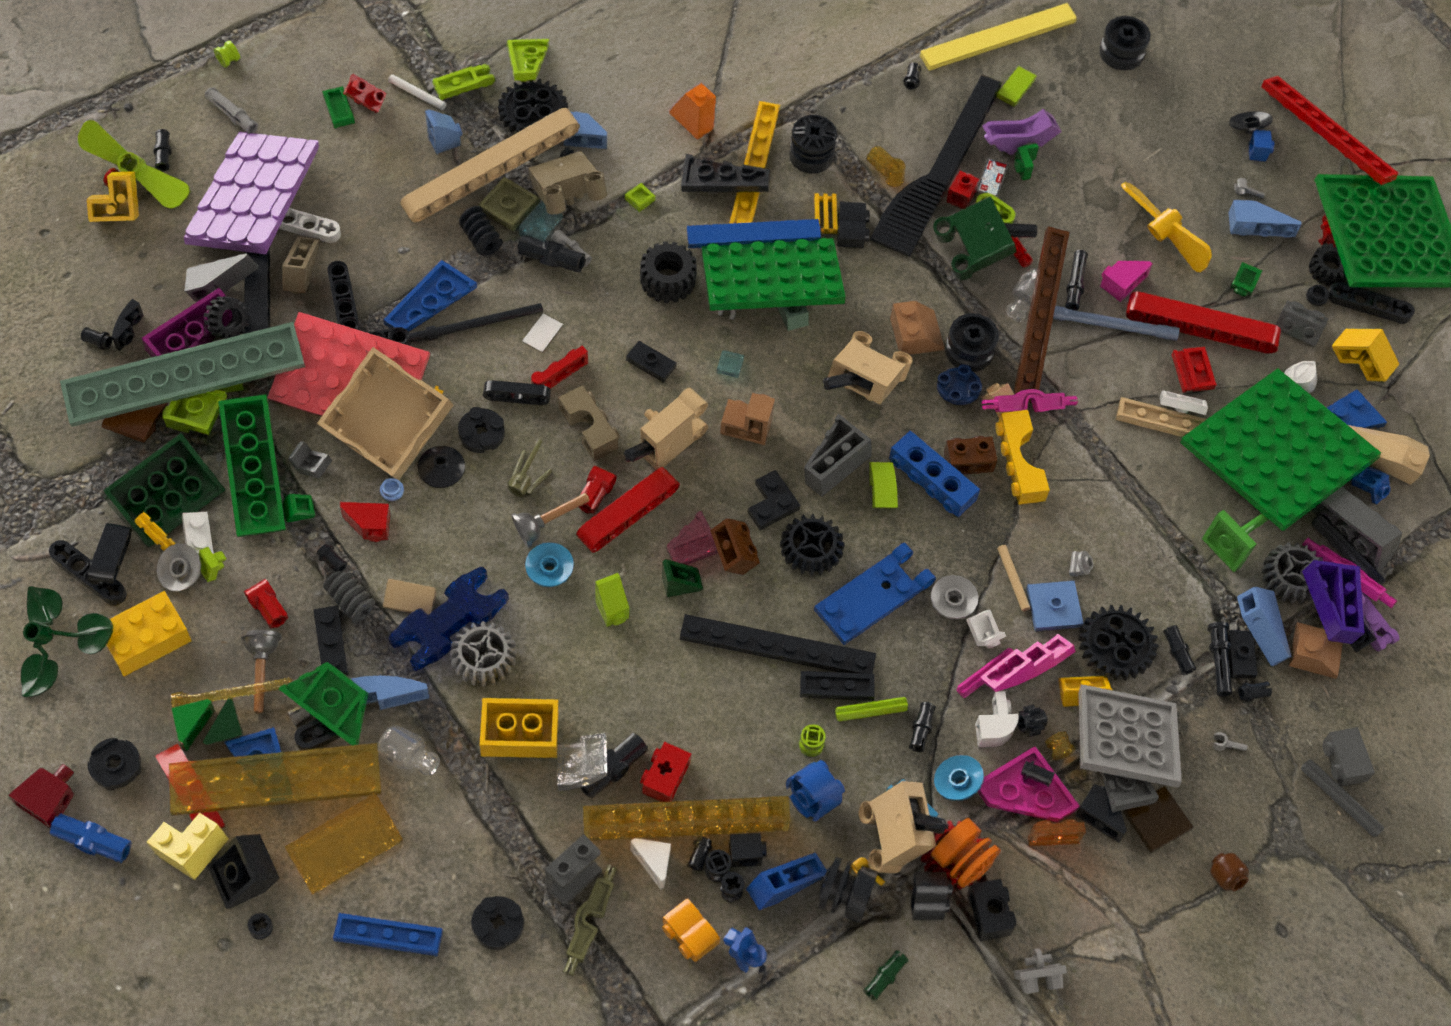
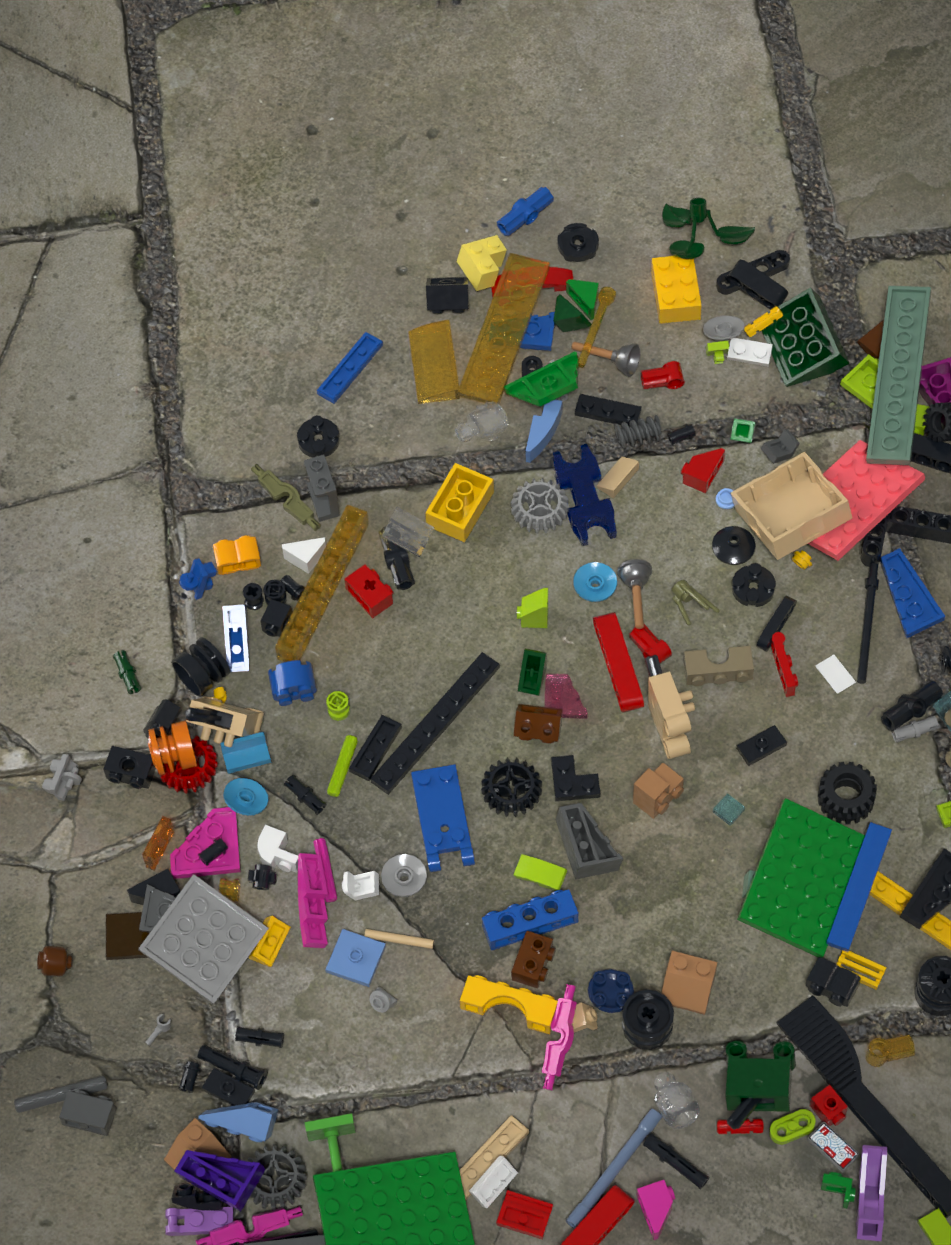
camera: 125 degrees right, 0 degrees up
(44, 794) = (573, 193): dark red torso -> none
(252, 465) = (795, 404): green slope -> none
(263, 933) = (401, 287): black bush -> none
(867, 370) = (656, 902): tan piece -> none
(1042, 310) = (645, 1088): reddish brown plate -> none
(1129, 627) = (283, 969): black gear -> none

